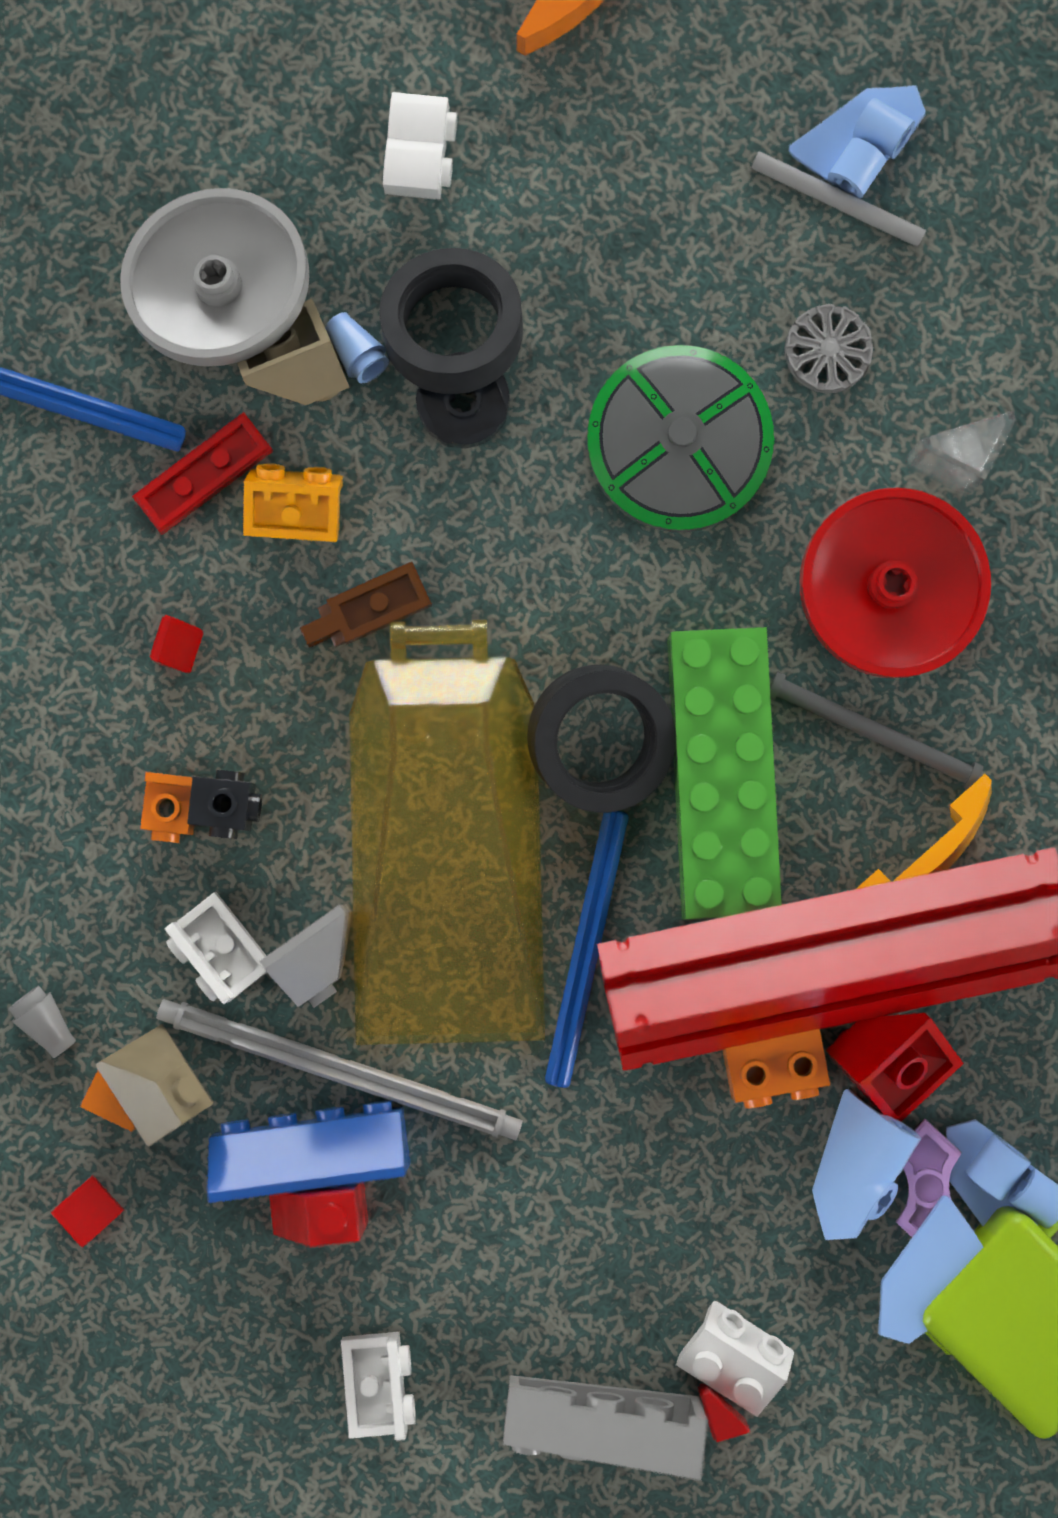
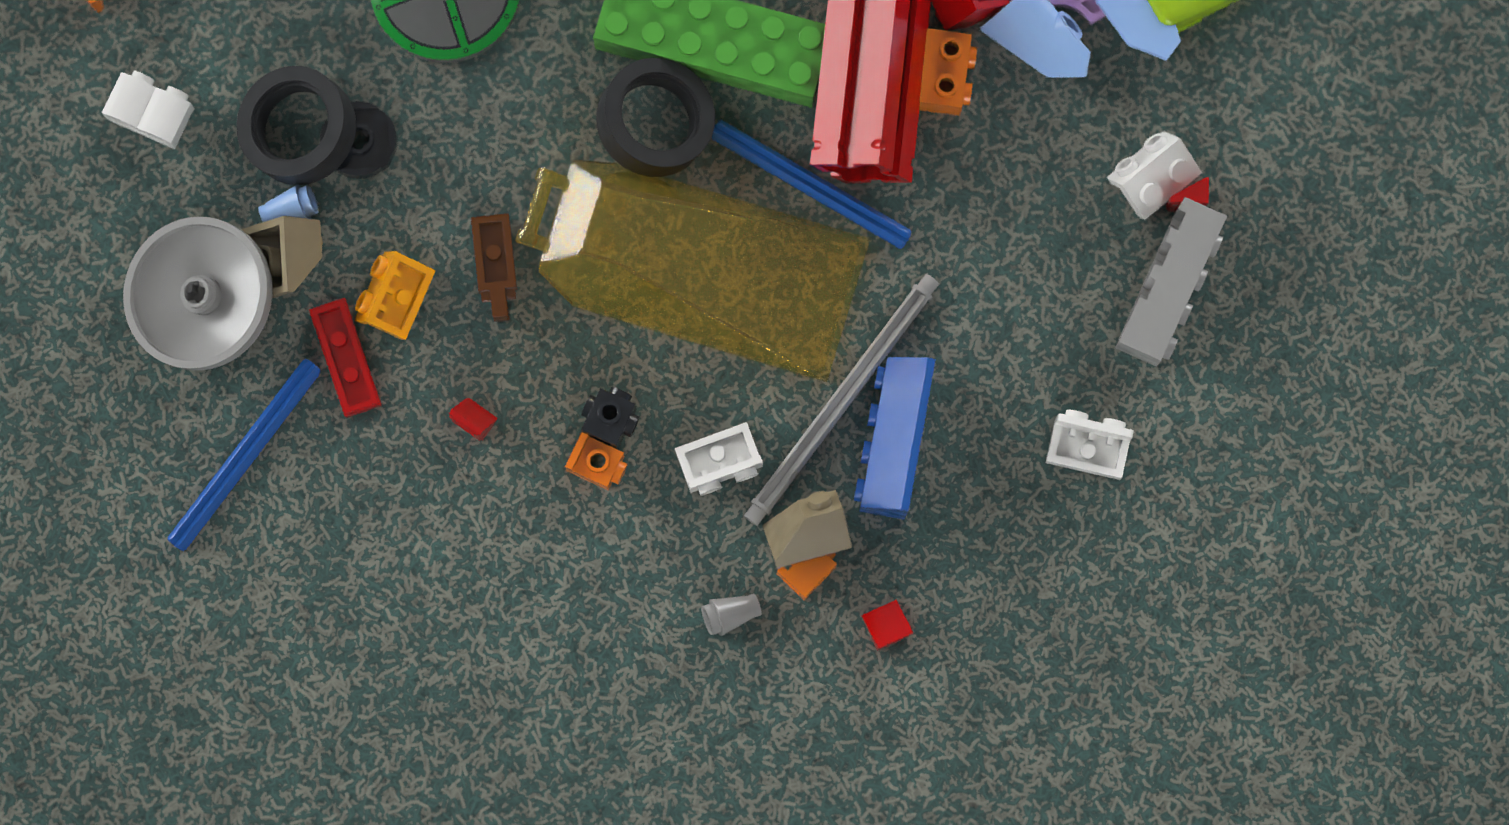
camera: 75 degrees left, 5 degrees down
(312, 959) = (750, 386): light grey slope -> none
(320, 1215) = (942, 443): red slope -> none

